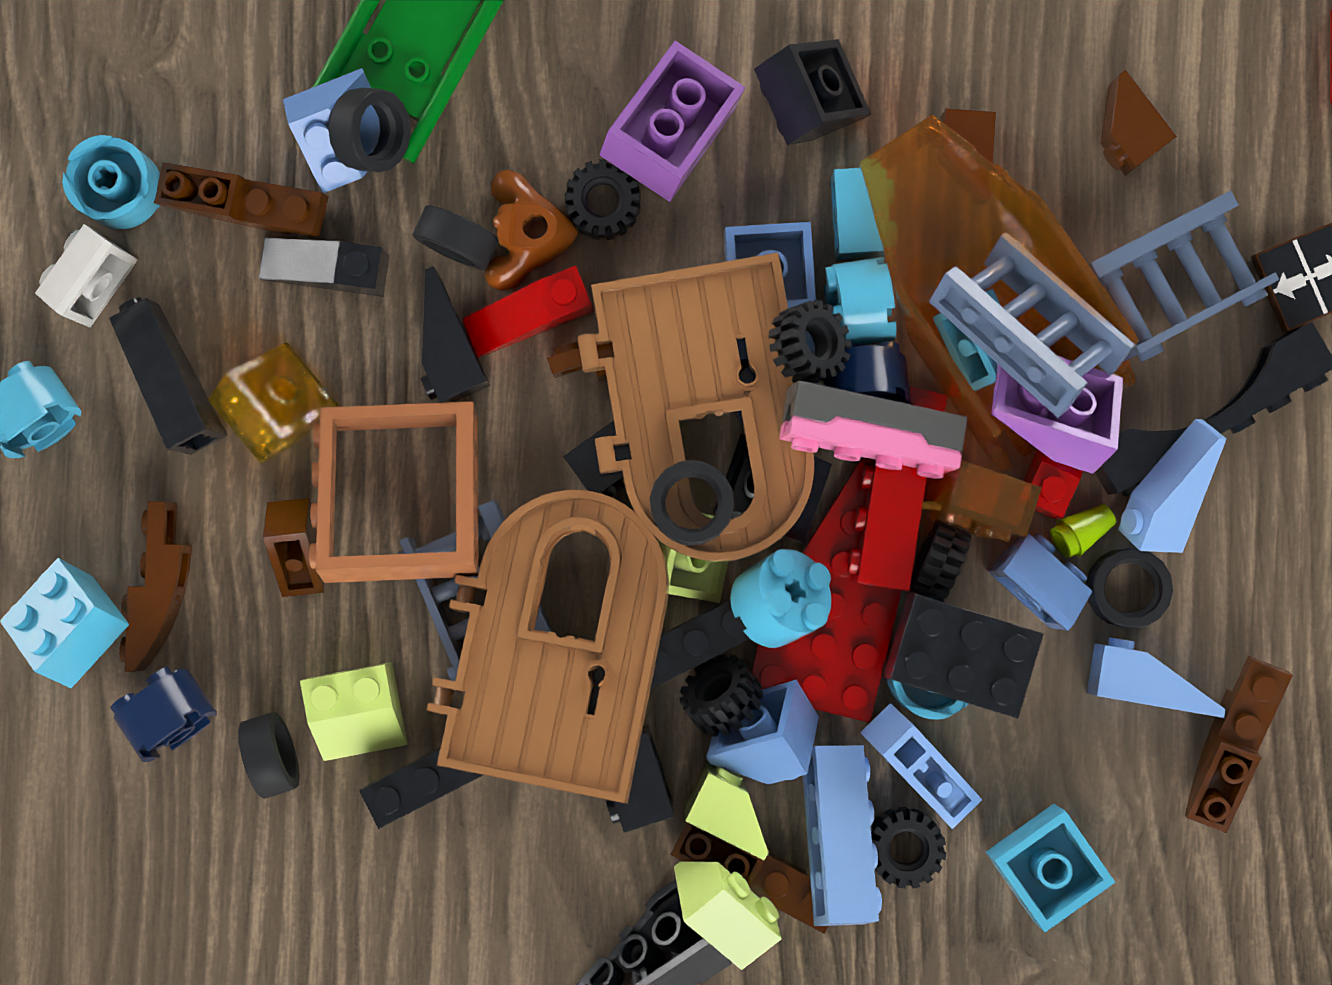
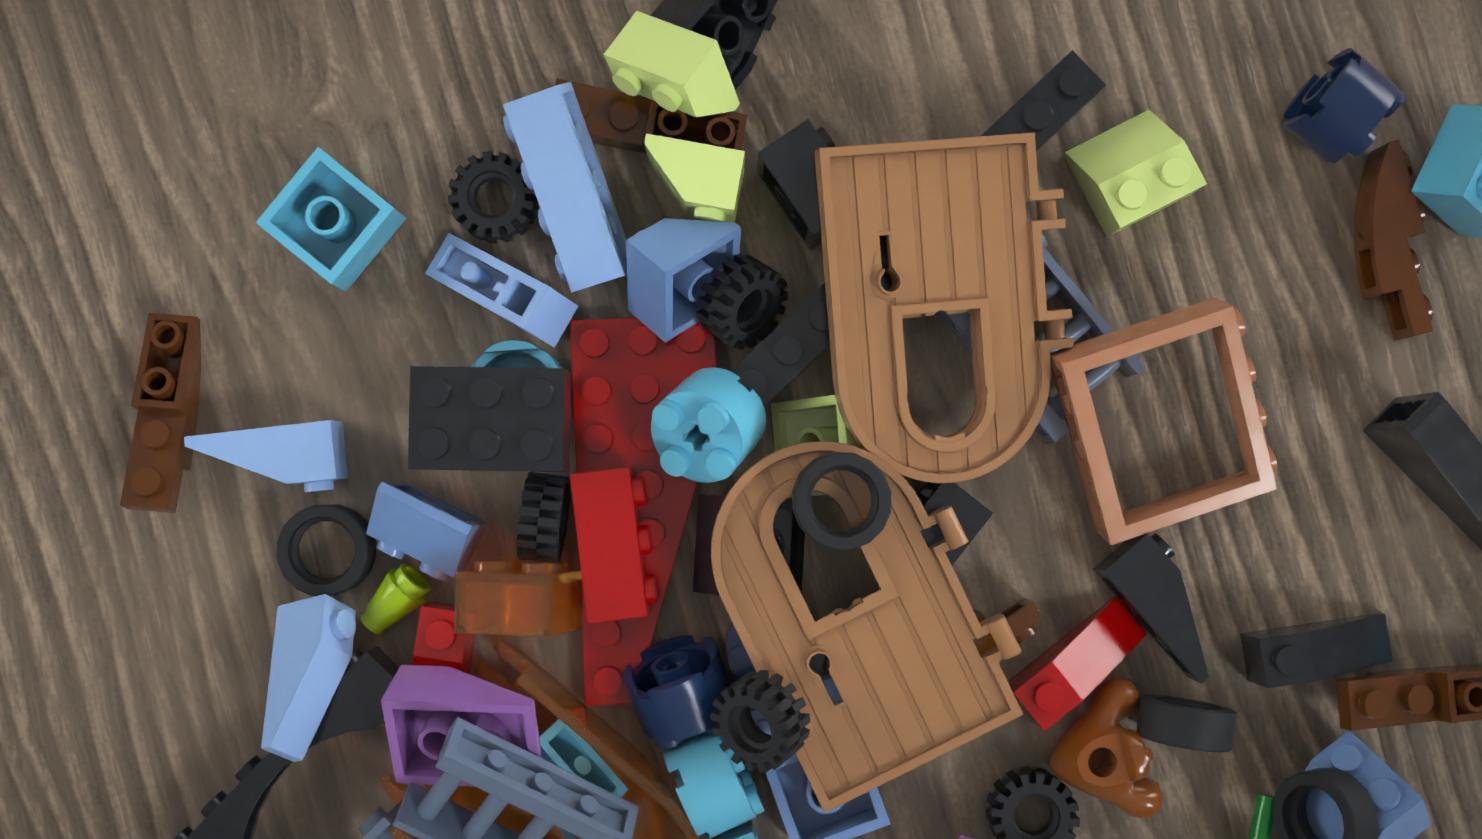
camera: 160 degrees right, 0 degrees up
(268, 755) = (1214, 95): black tyre -> none
(271, 401) = (1331, 481): clear yellow slope -> none
(288, 541) = (1270, 333): reddish brown slope -> none
(872, 429) = (662, 643): piece -> none

